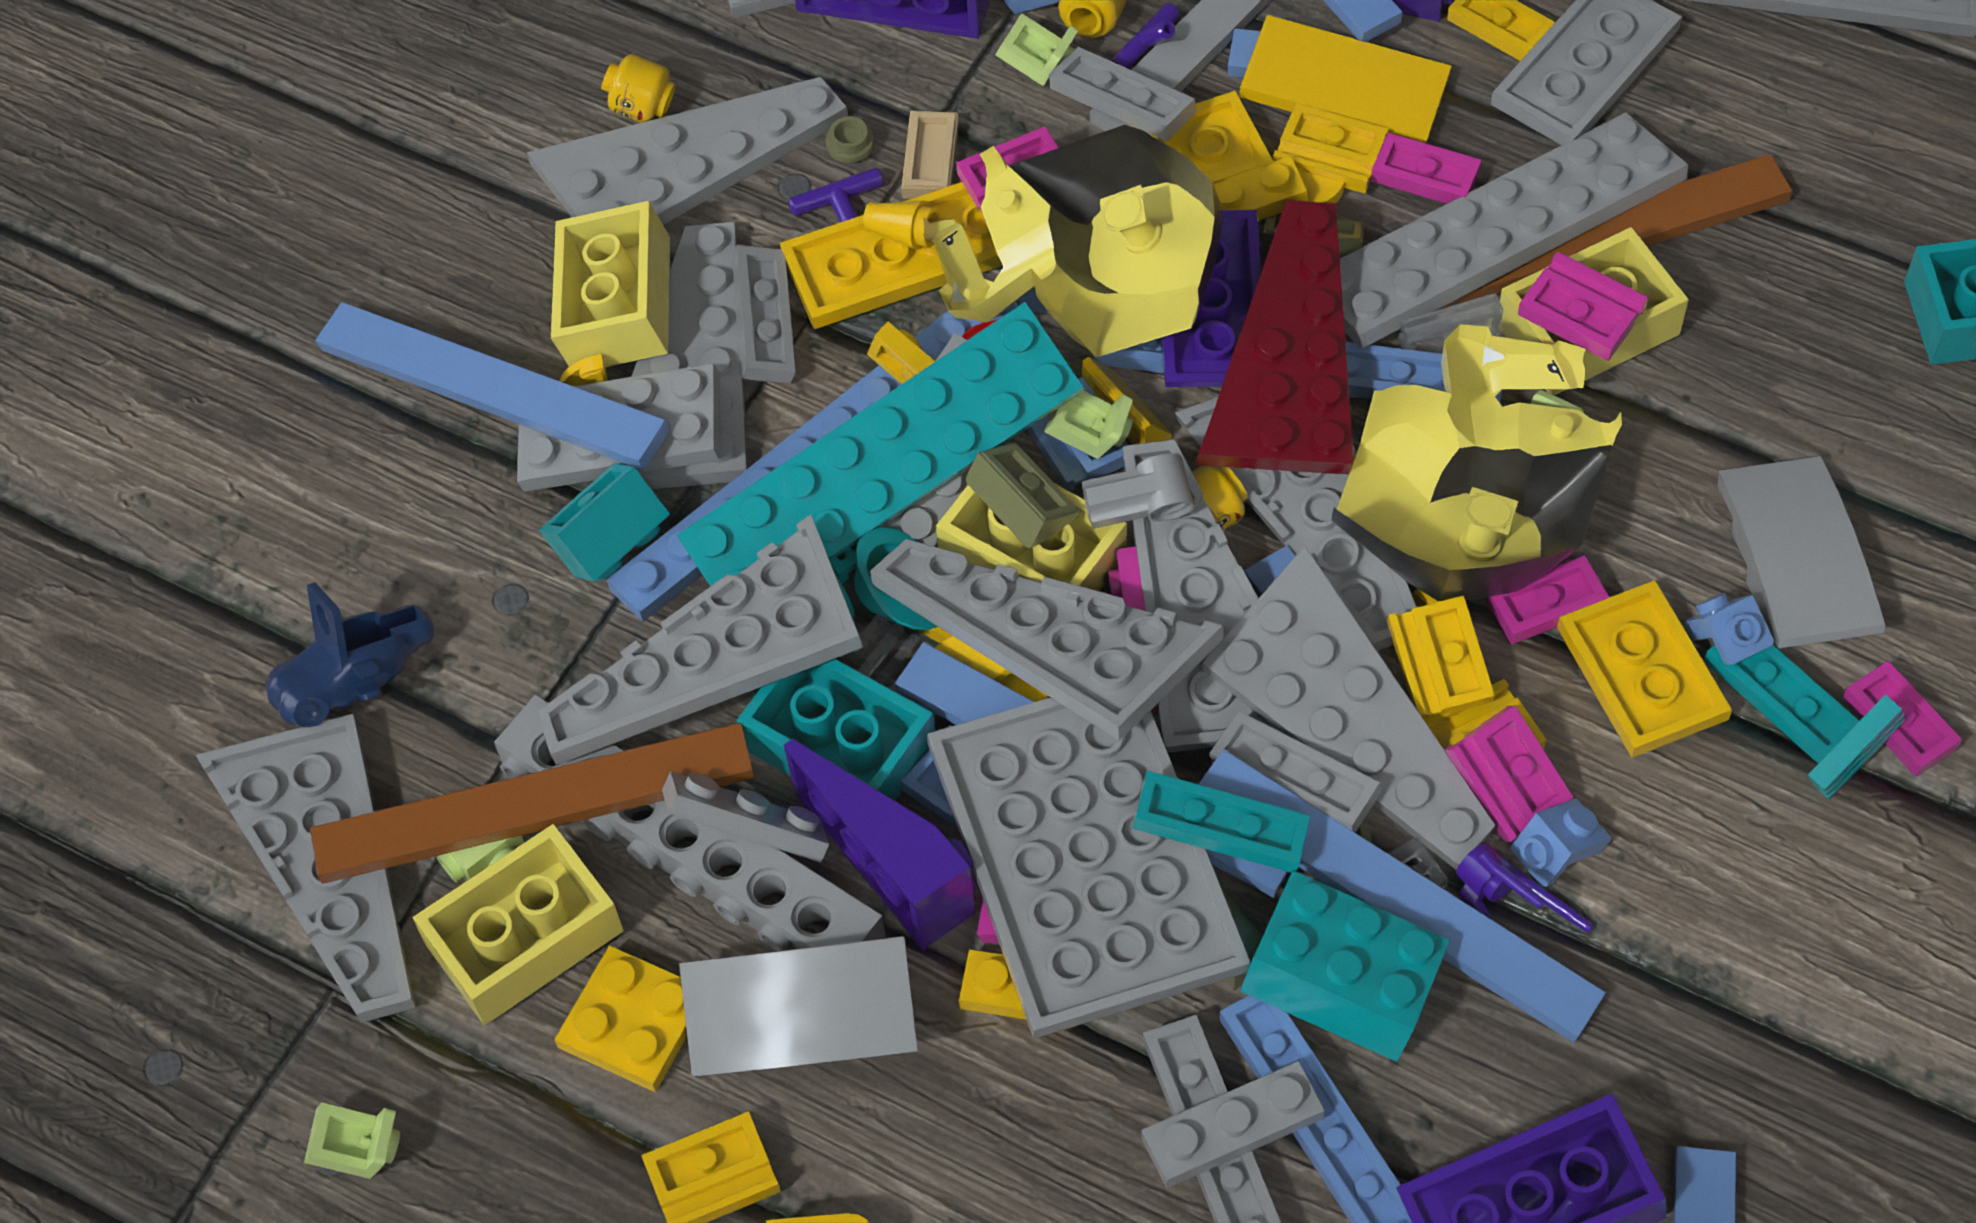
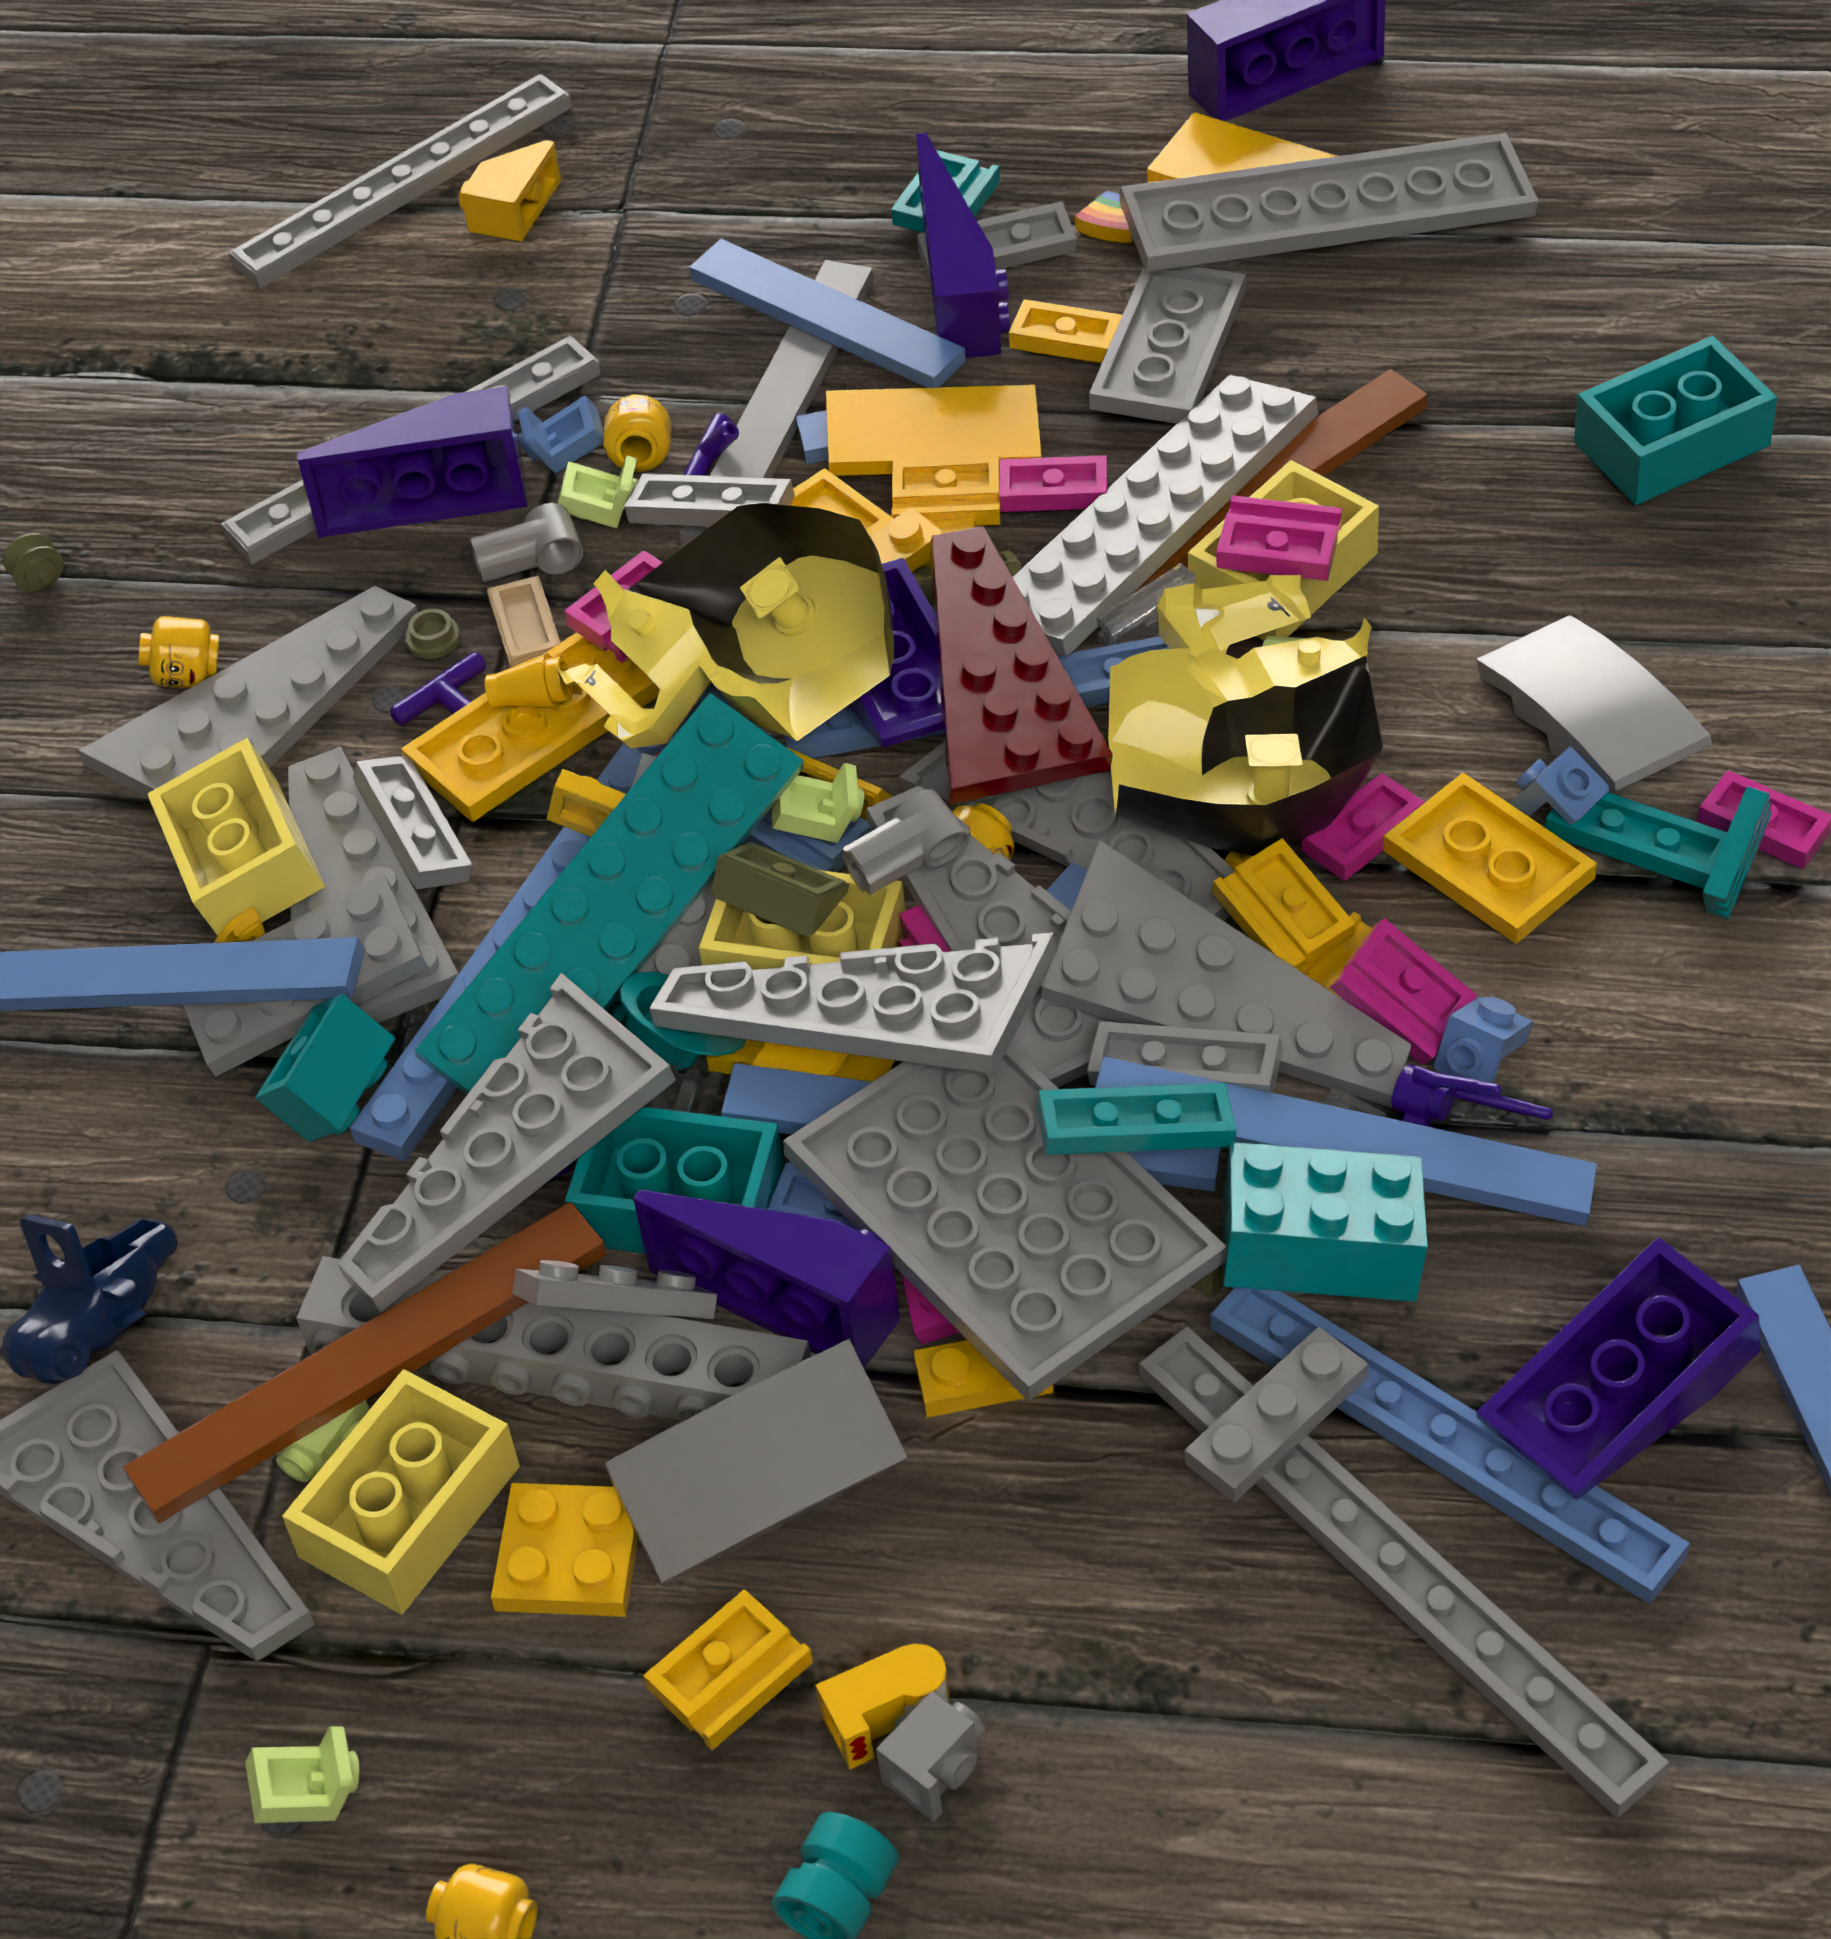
camera: 20 degrees left, 10 degrees down
(974, 81) = (542, 541): none -> light grey piece

